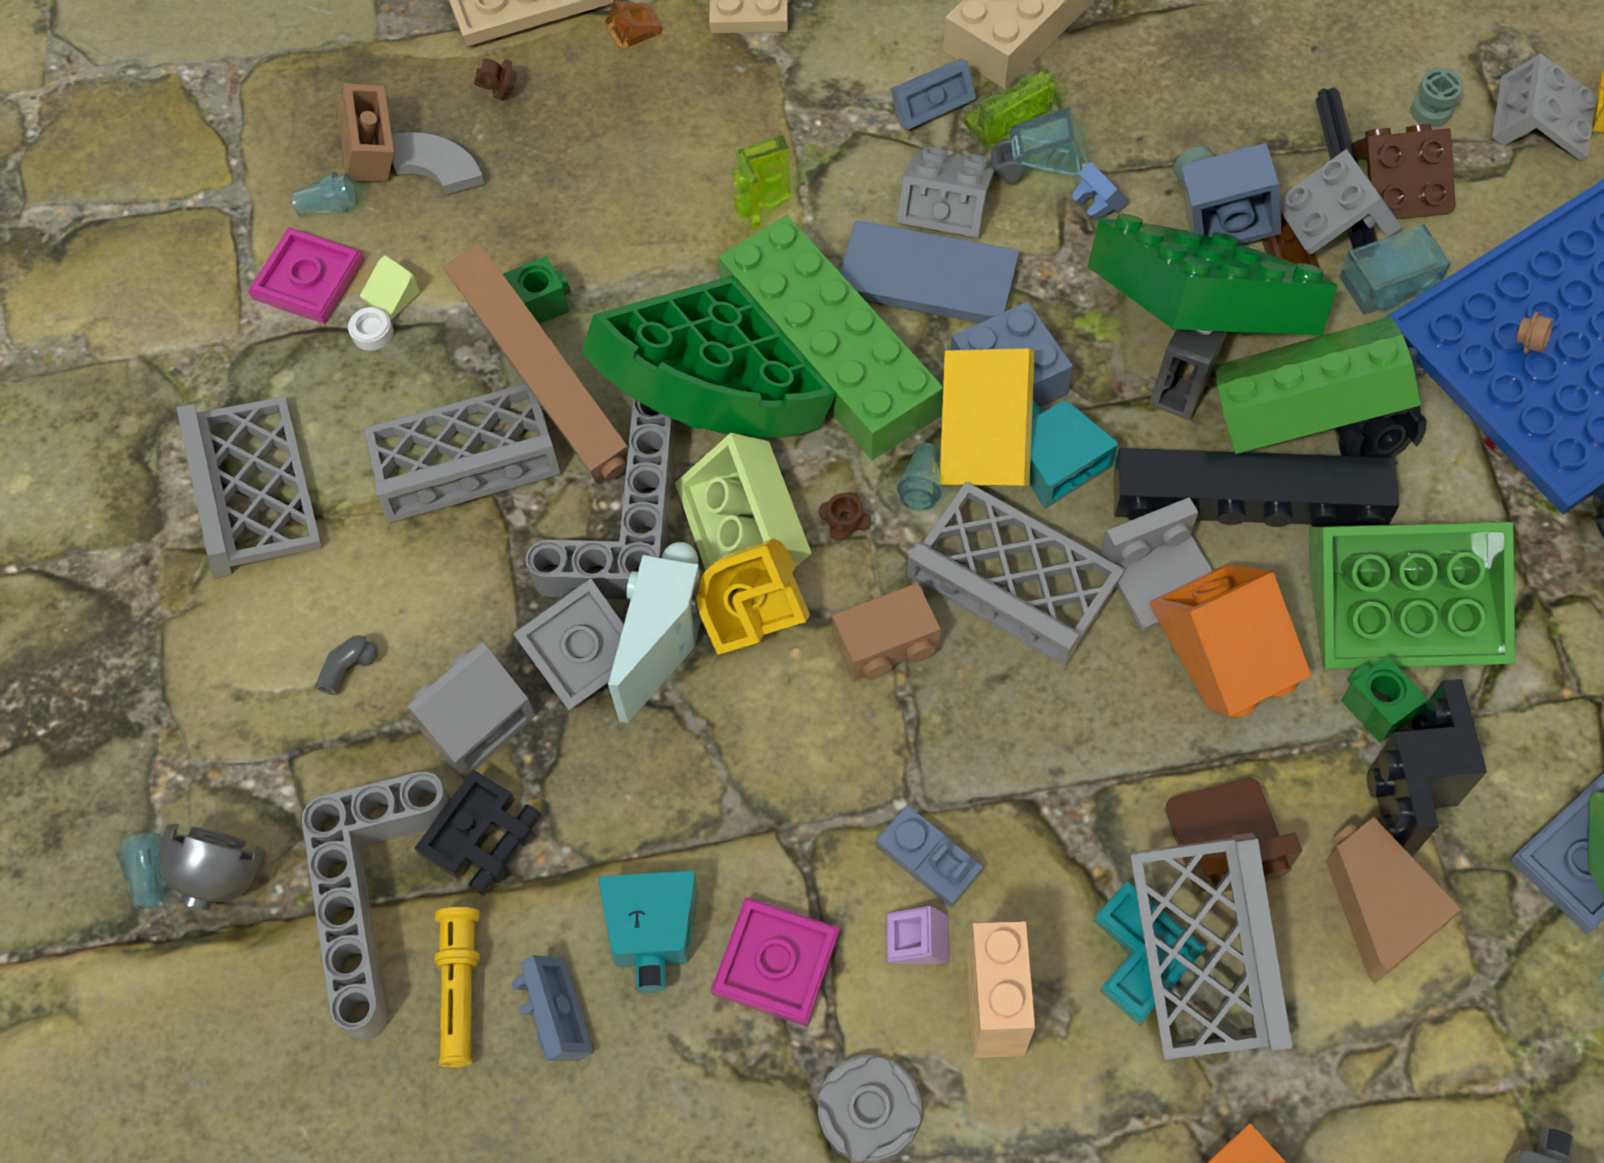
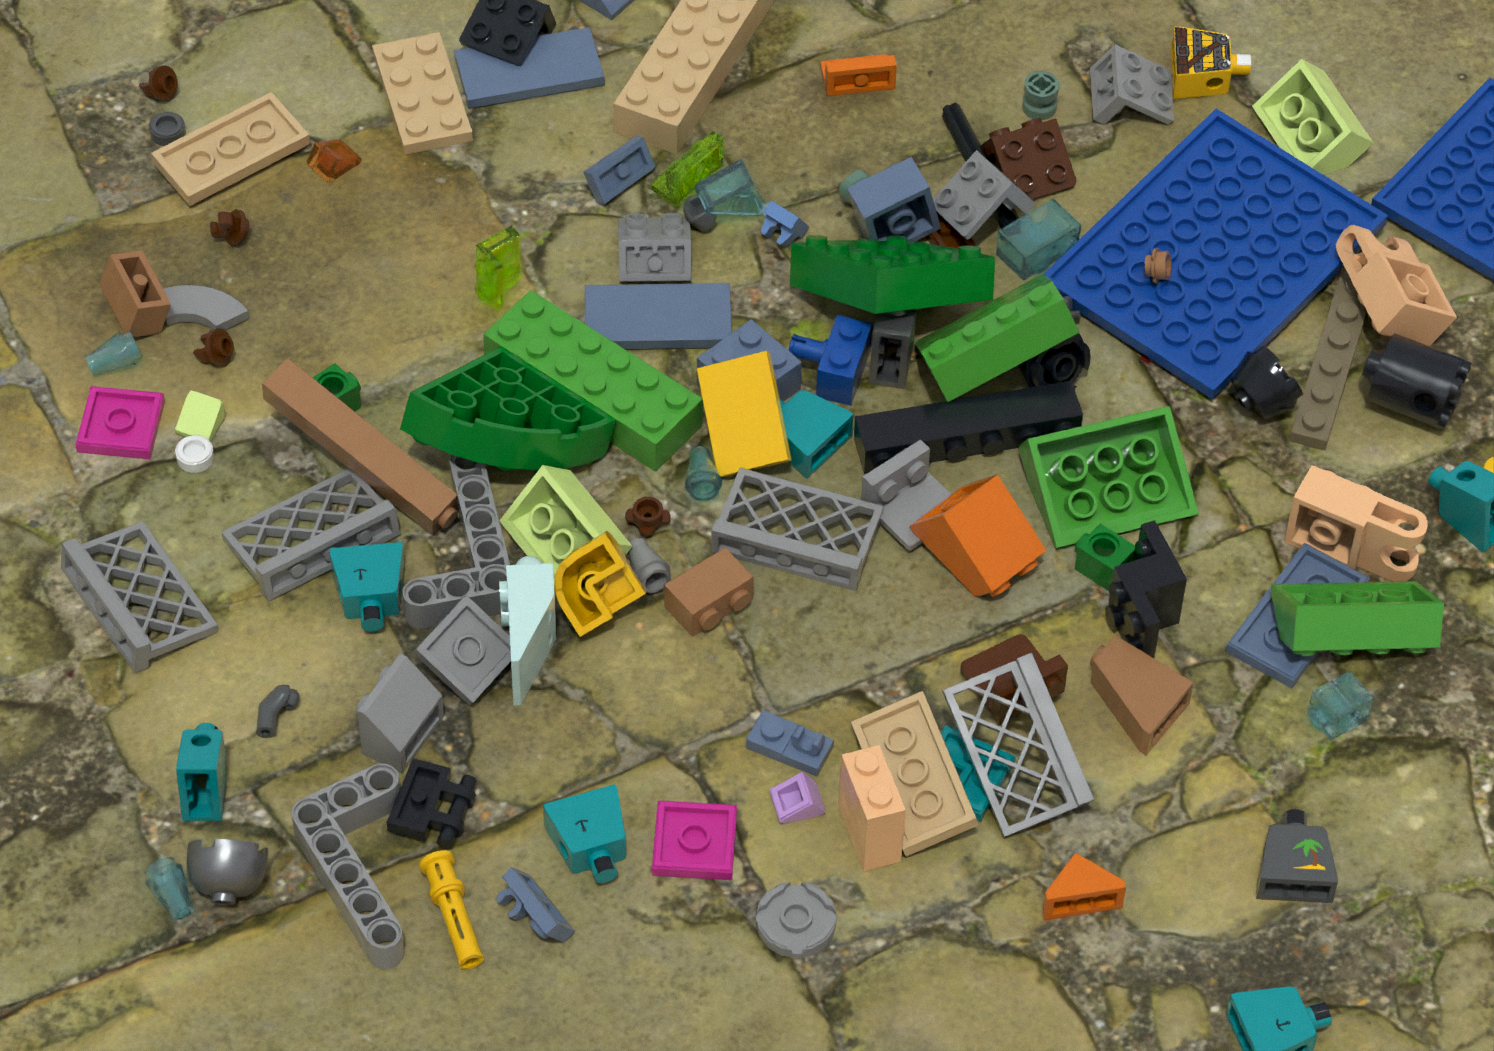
camera: 20 degrees left, 10 degrees down
(226, 728) = (199, 754): none -> teal torso
(434, 210) = (217, 347): none -> reddish brown plate
(500, 527) = (369, 581): none -> teal torso
(824, 584) = (648, 566): none -> light grey cone
(1073, 944) = (921, 771): none -> tan plate
(1120, 368) = (839, 358): none -> blue brick
(1232, 35) = (859, 74): none -> orange panel

